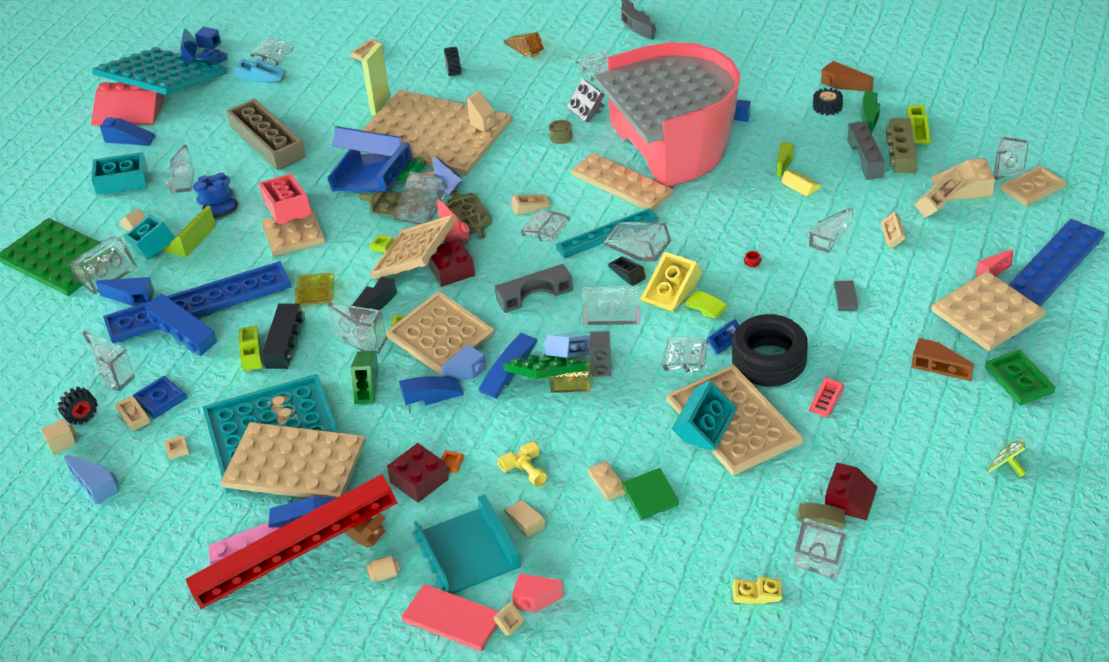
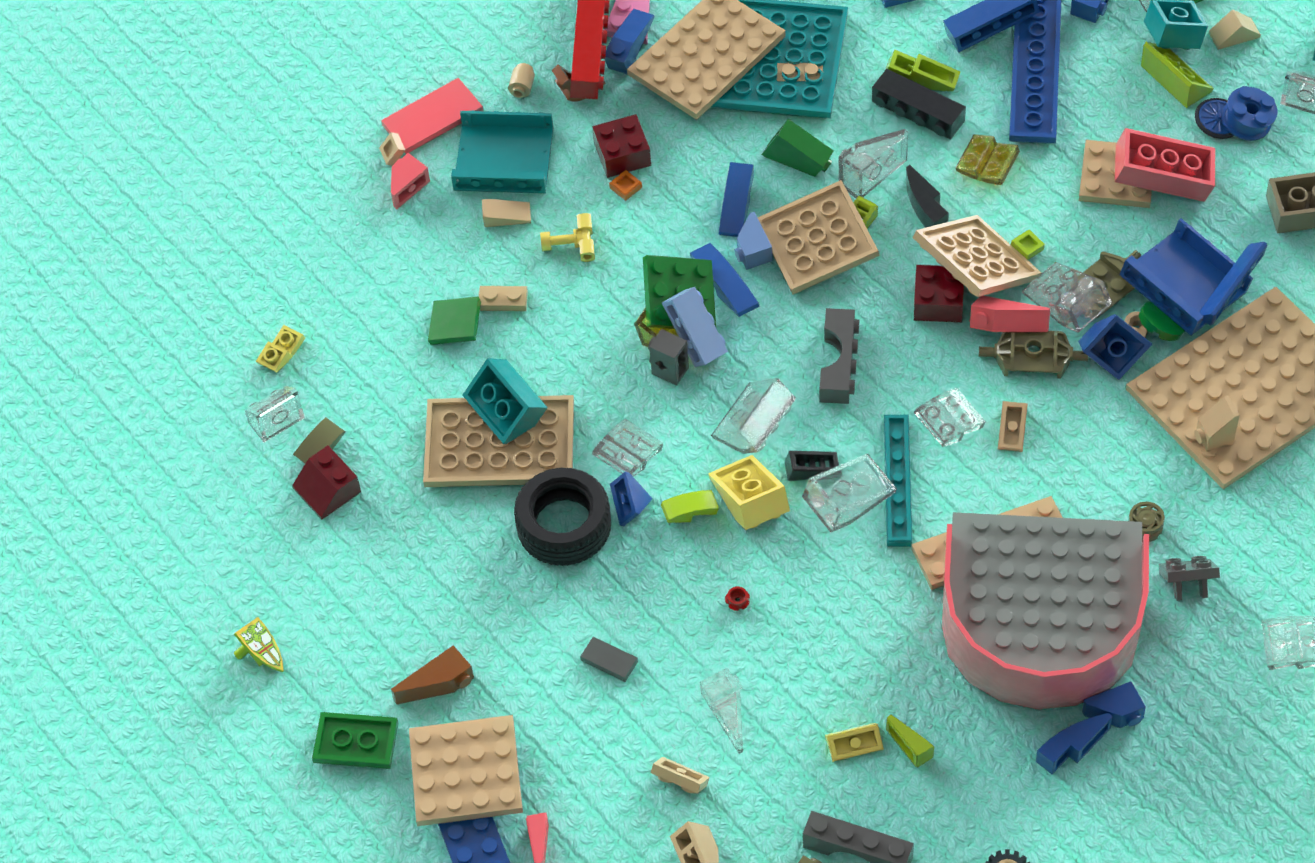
camera: 120 degrees right, 15 degrees up
(831, 385) = (476, 555): coral slope -> none

